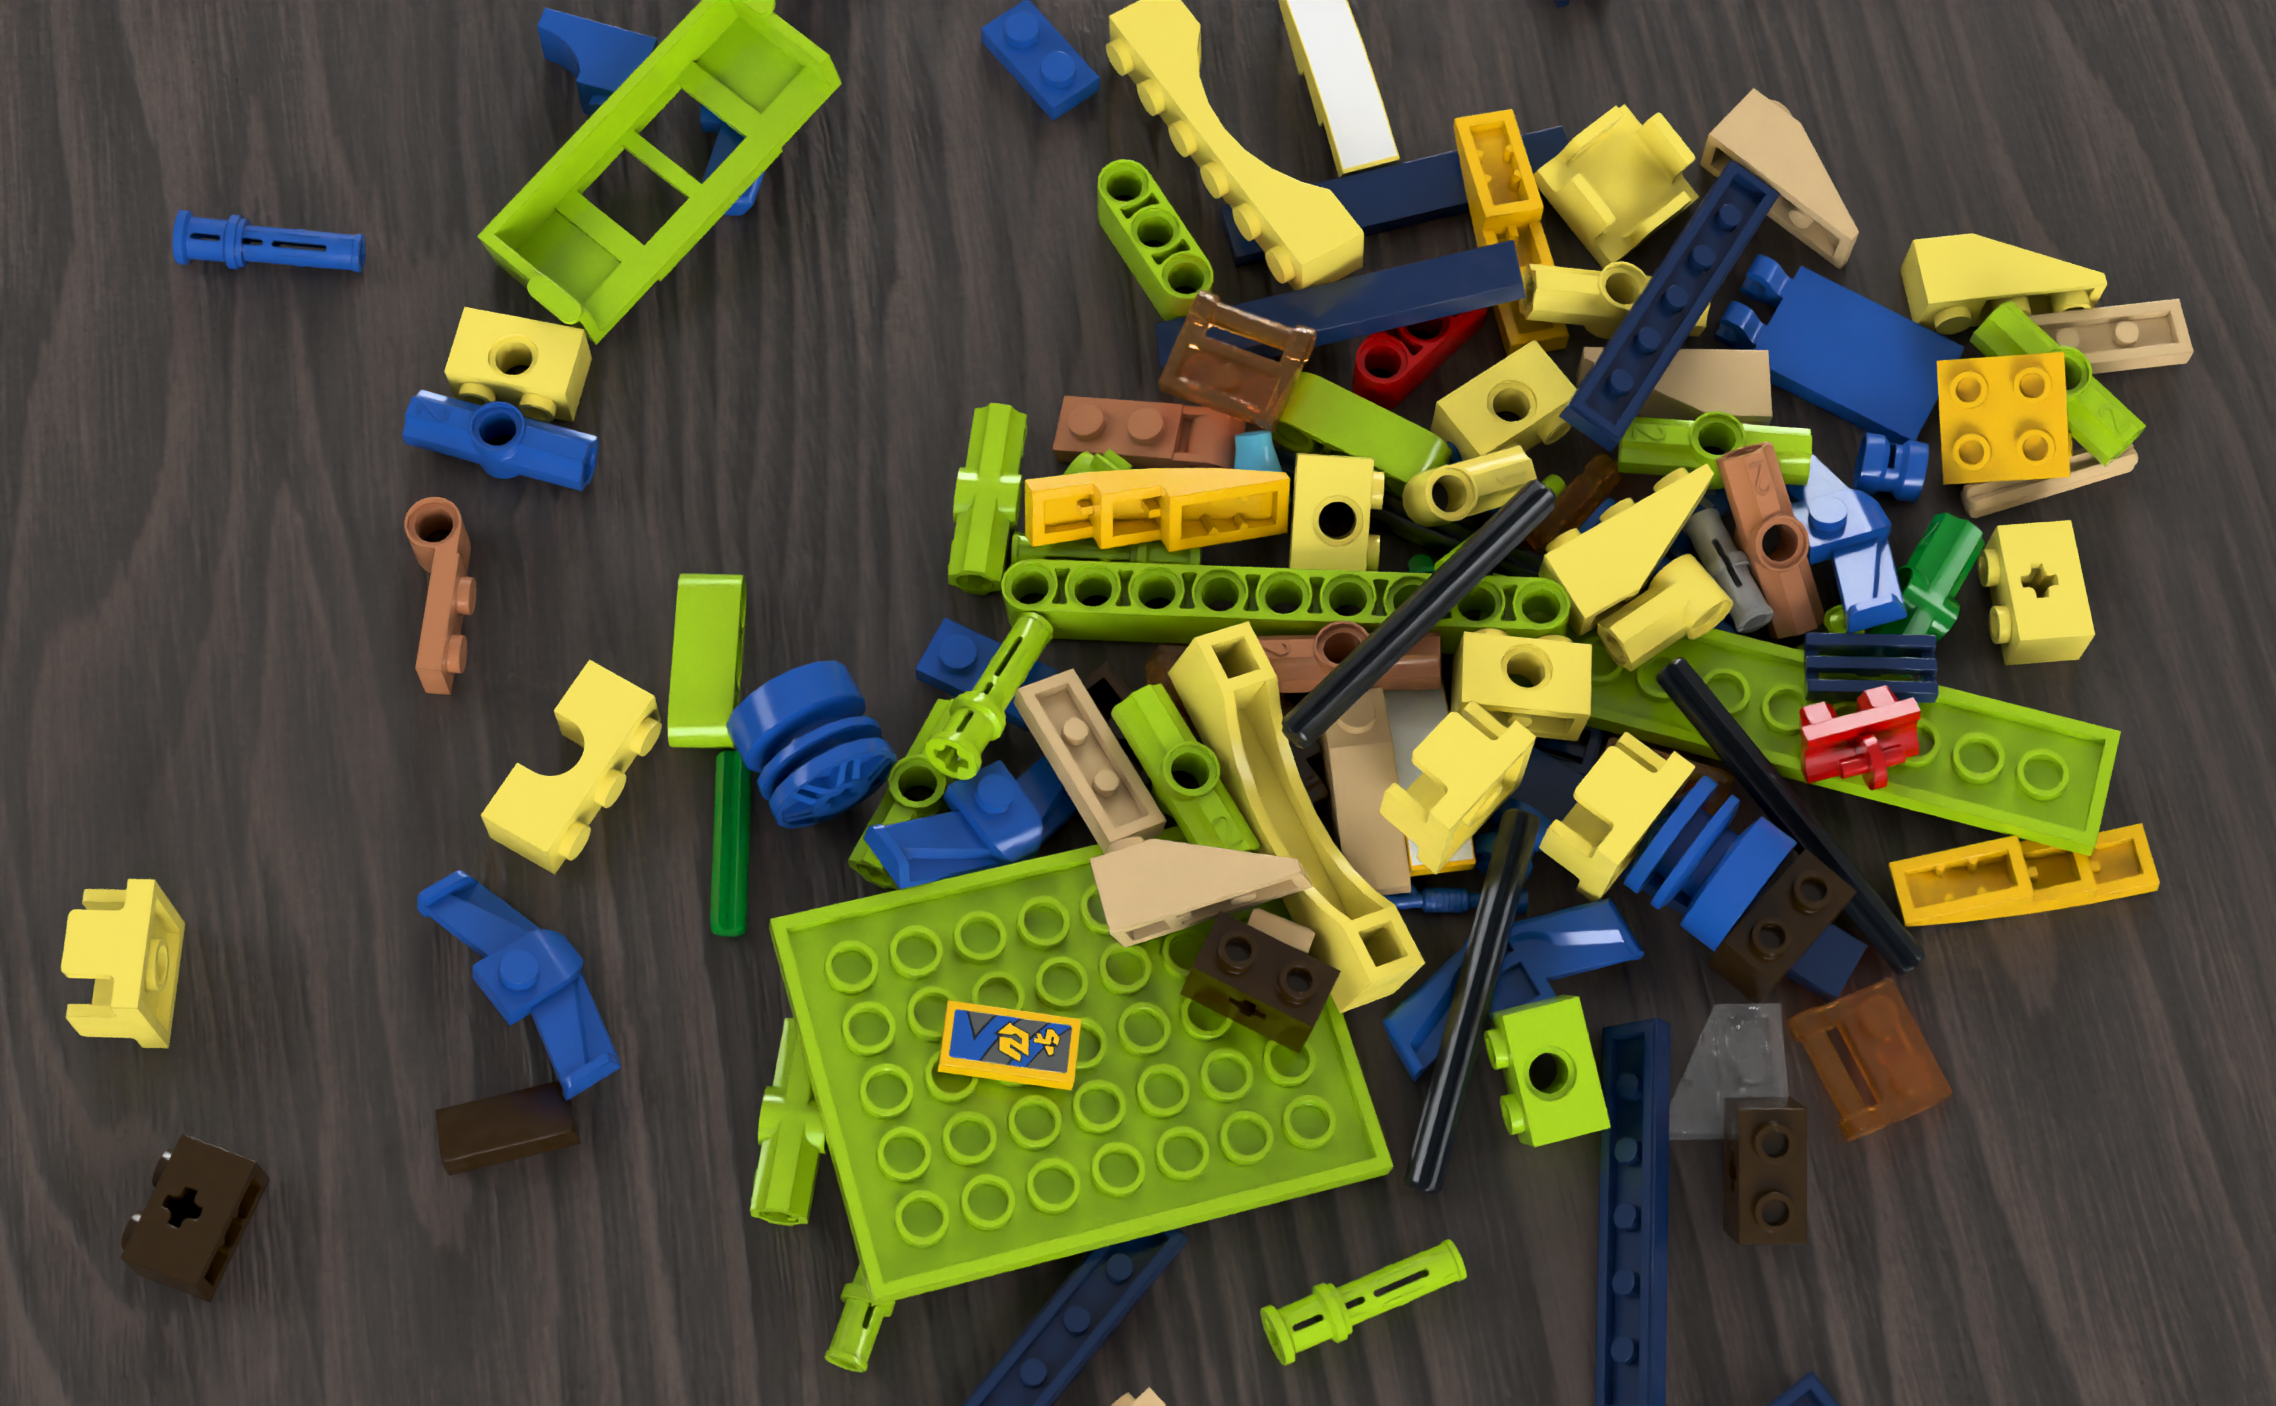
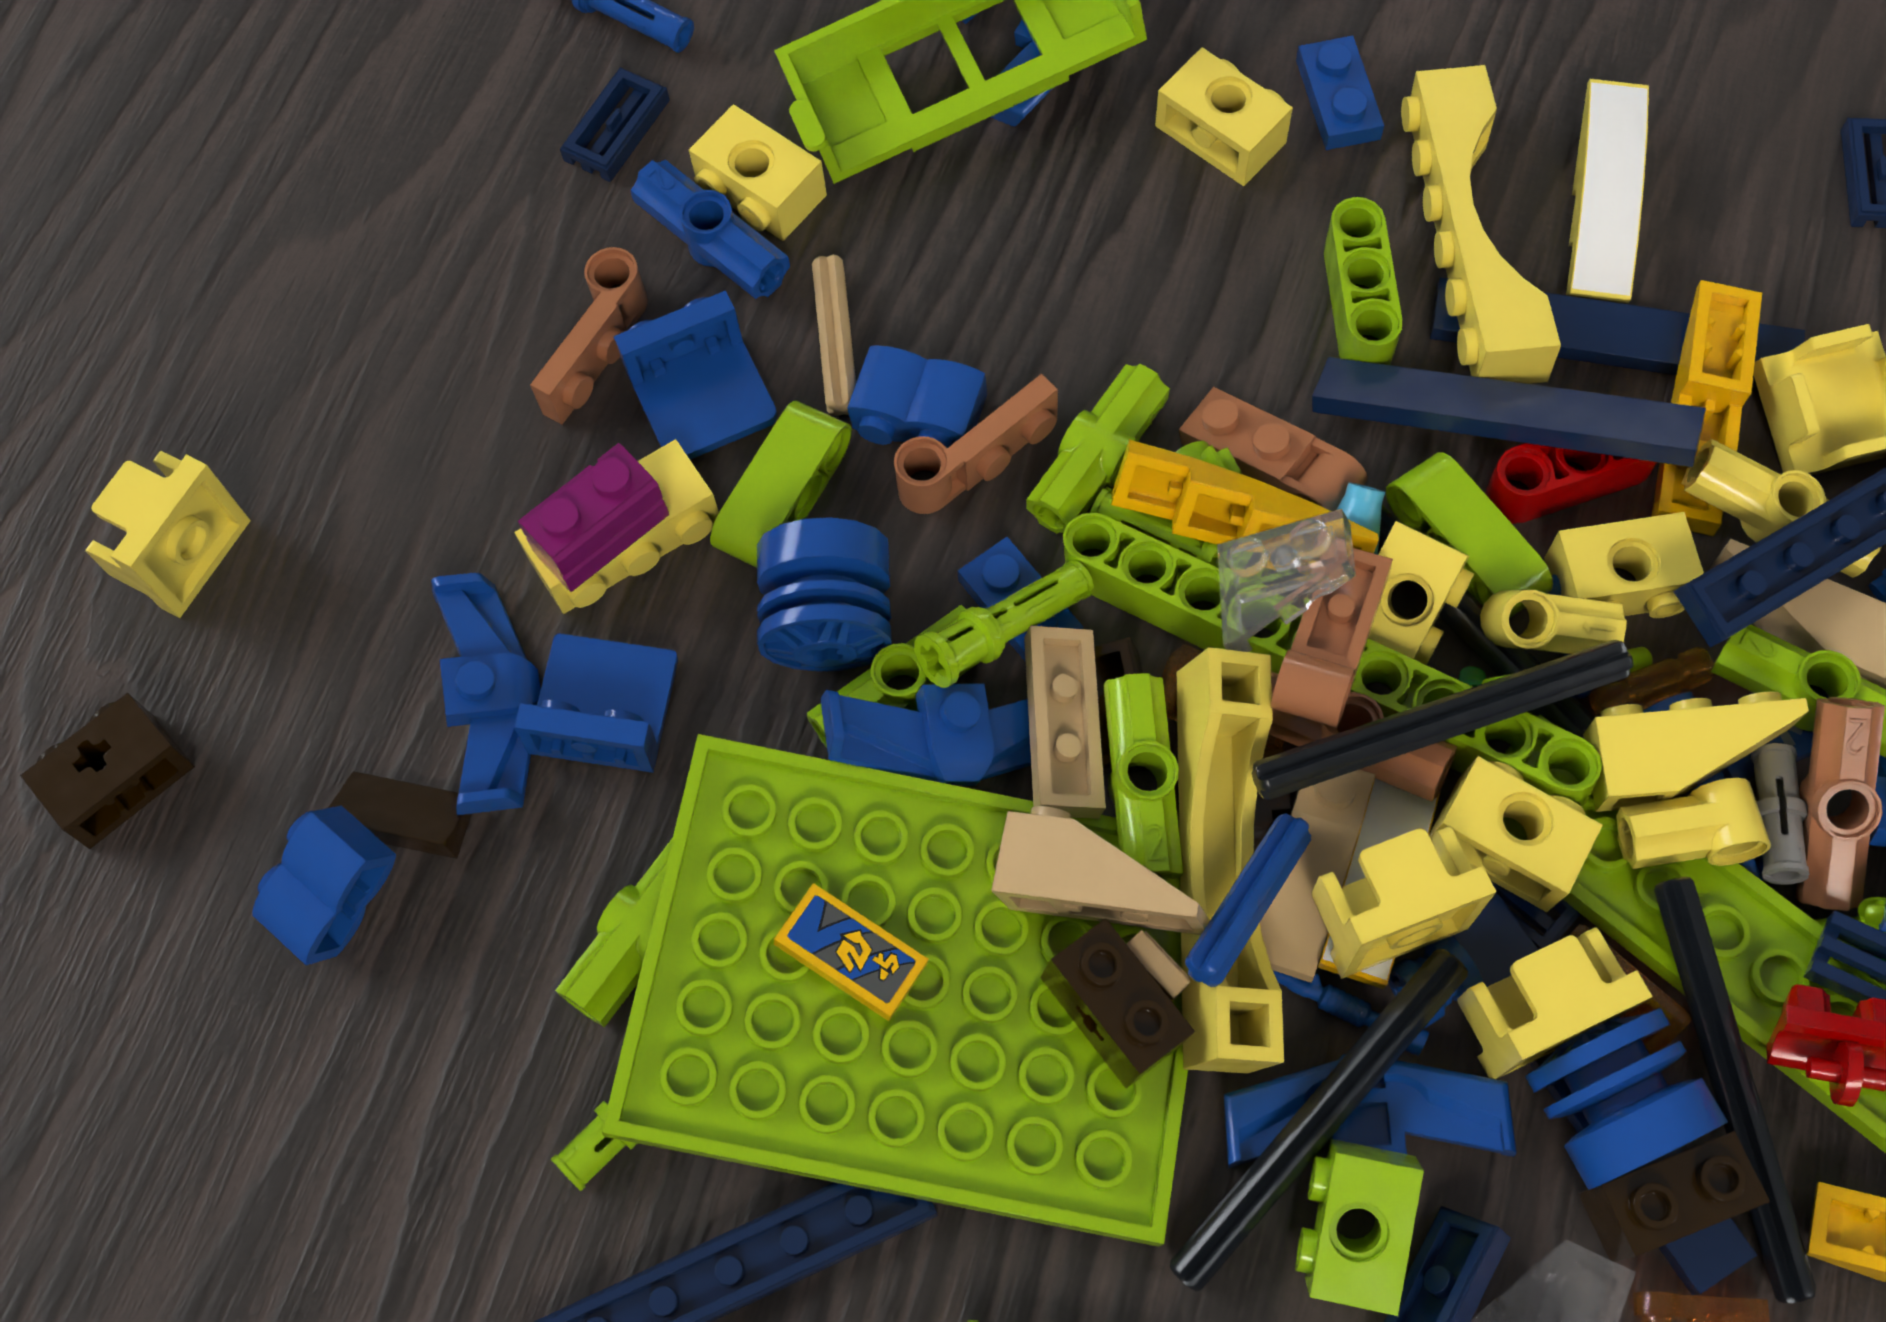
camera: 35 degrees right, 0 degrees up
(334, 417) = (624, 126): none -> dark blue tile
(477, 1218) = (322, 883): none -> blue brick
(562, 765) = (594, 517): none -> magenta brick
(569, 593) = (696, 376): none -> blue bracket
(646, 937) = (600, 703): none -> blue bracket
(678, 494) = (834, 333): none -> tan axle
(730, 845) = (715, 660): green axle -> none
(795, 526) = (915, 397): none -> blue brick
(881, 551) = (977, 454): none -> nougat plate
(962, 151) = (1223, 116): none -> light yellow brick
(1221, 545) = (1281, 573): none -> clear wing
(1231, 377) = (1372, 429): clear orange plate -> none
(1292, 579) = (1330, 645): none -> nougat plate
(1332, 840) = (1248, 900): none -> blue axle

